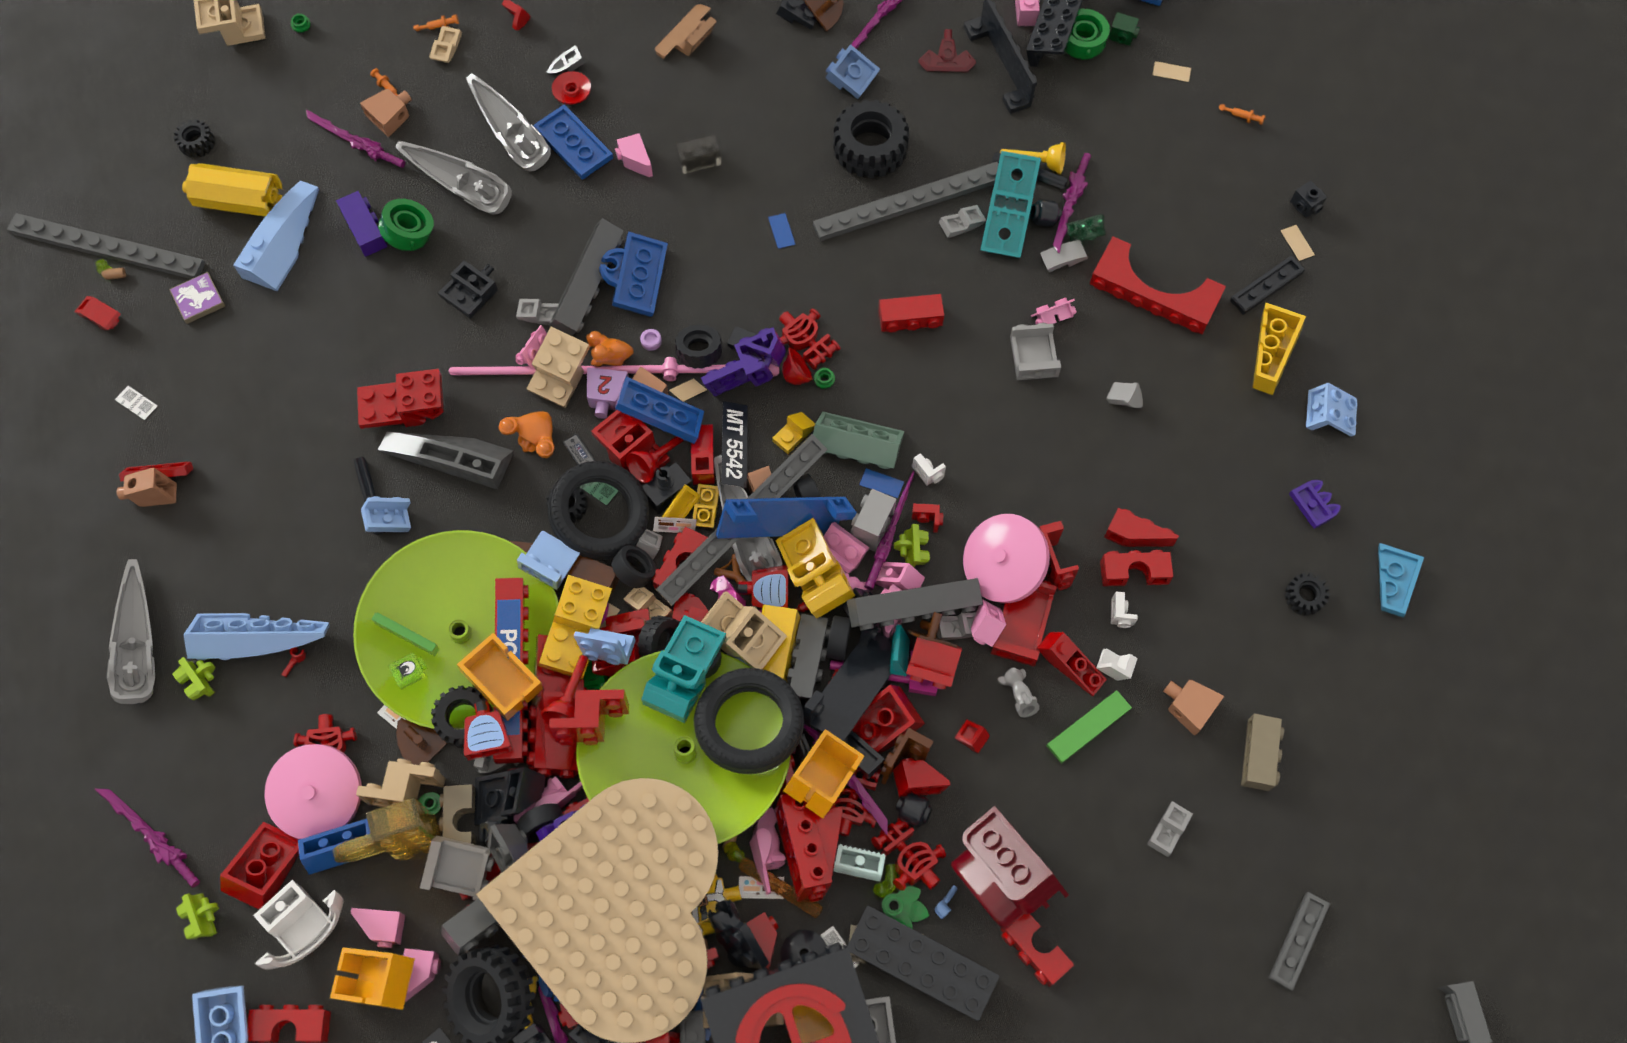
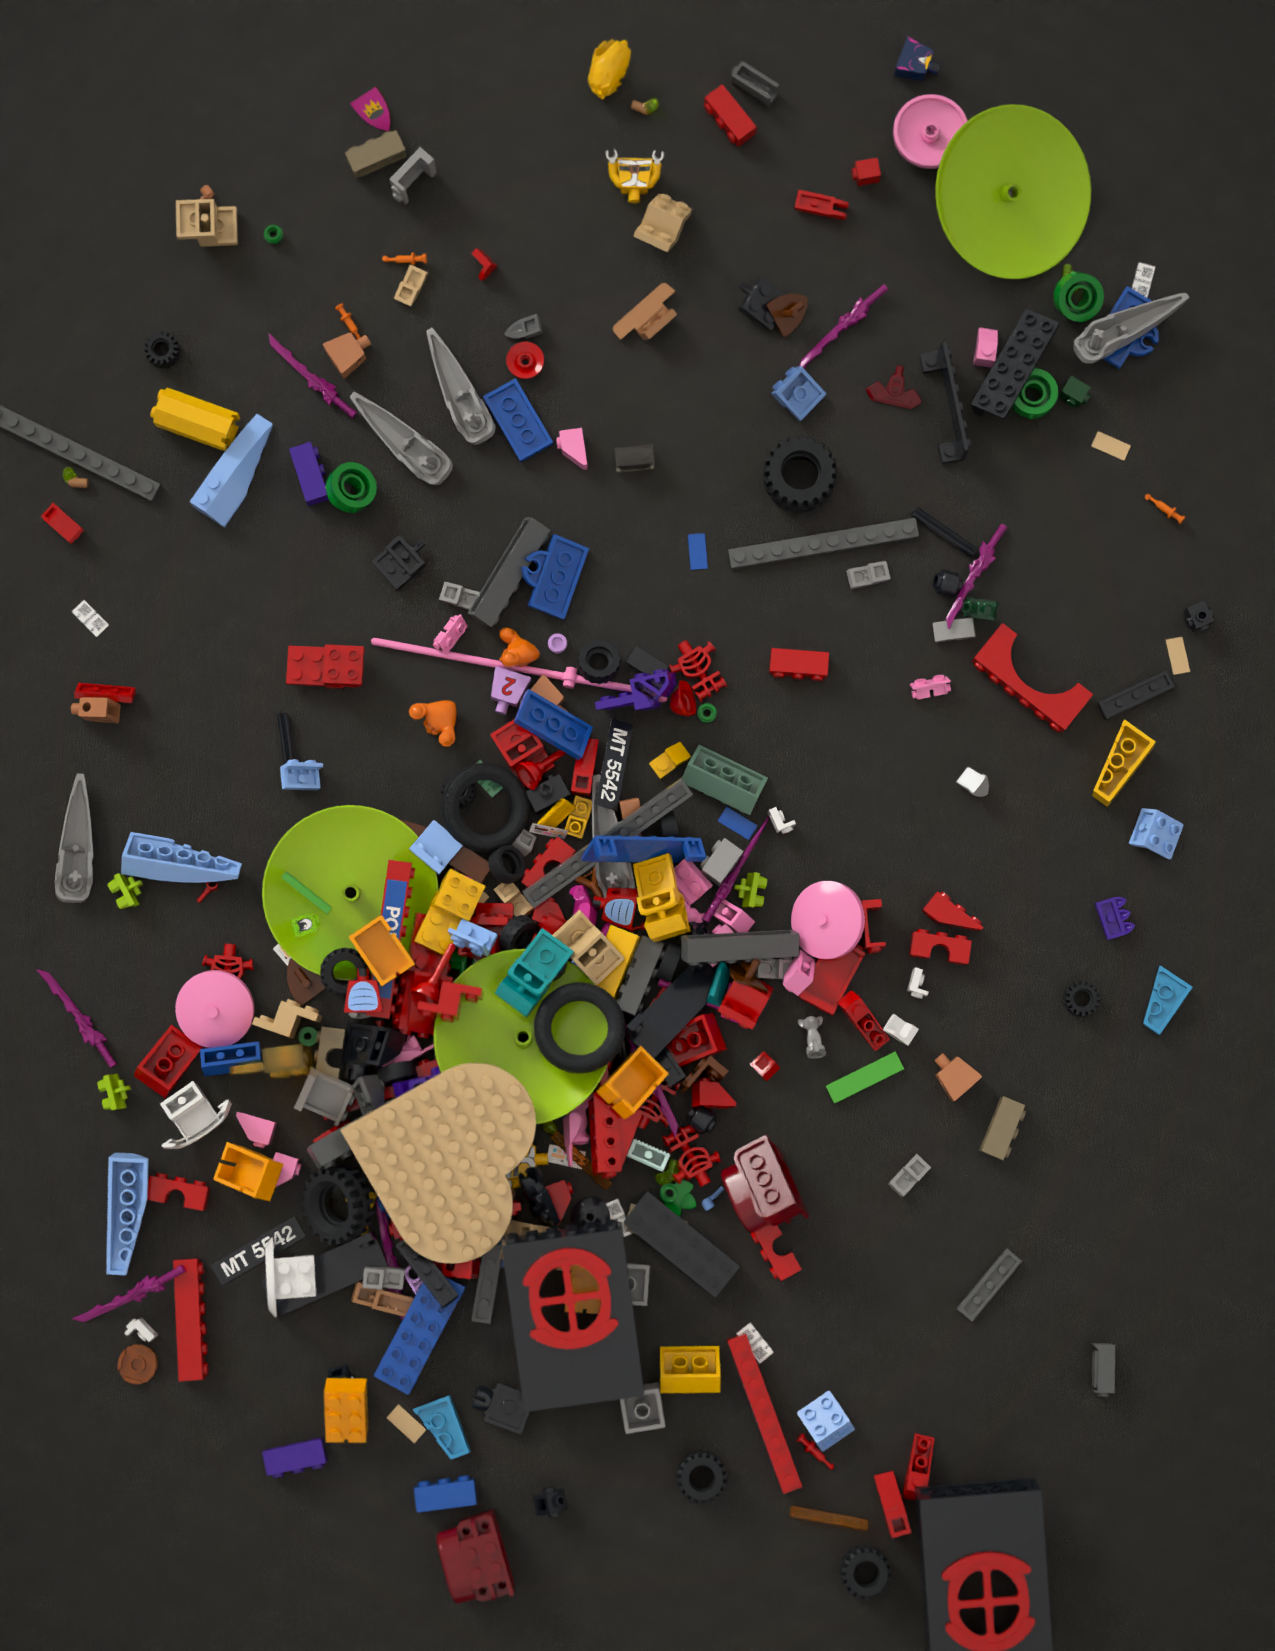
camera: 10 degrees right, 15 degrees up
(197, 297) = (152, 522): tile -> none
(456, 456) = (365, 725): dark grey wedge -> none
(558, 367) = (469, 662): tan bracket -> none
(578, 449) = (476, 742): sticker -> none
(688, 390) = (582, 703): tan sticker -> none
(928, 512) = (769, 861): red bracket -> none
(1010, 204) = (915, 570): teal bracket -> none
(1034, 351) = (903, 723): light grey panel -> none
(1053, 157) = (969, 526): yellow piece -> none

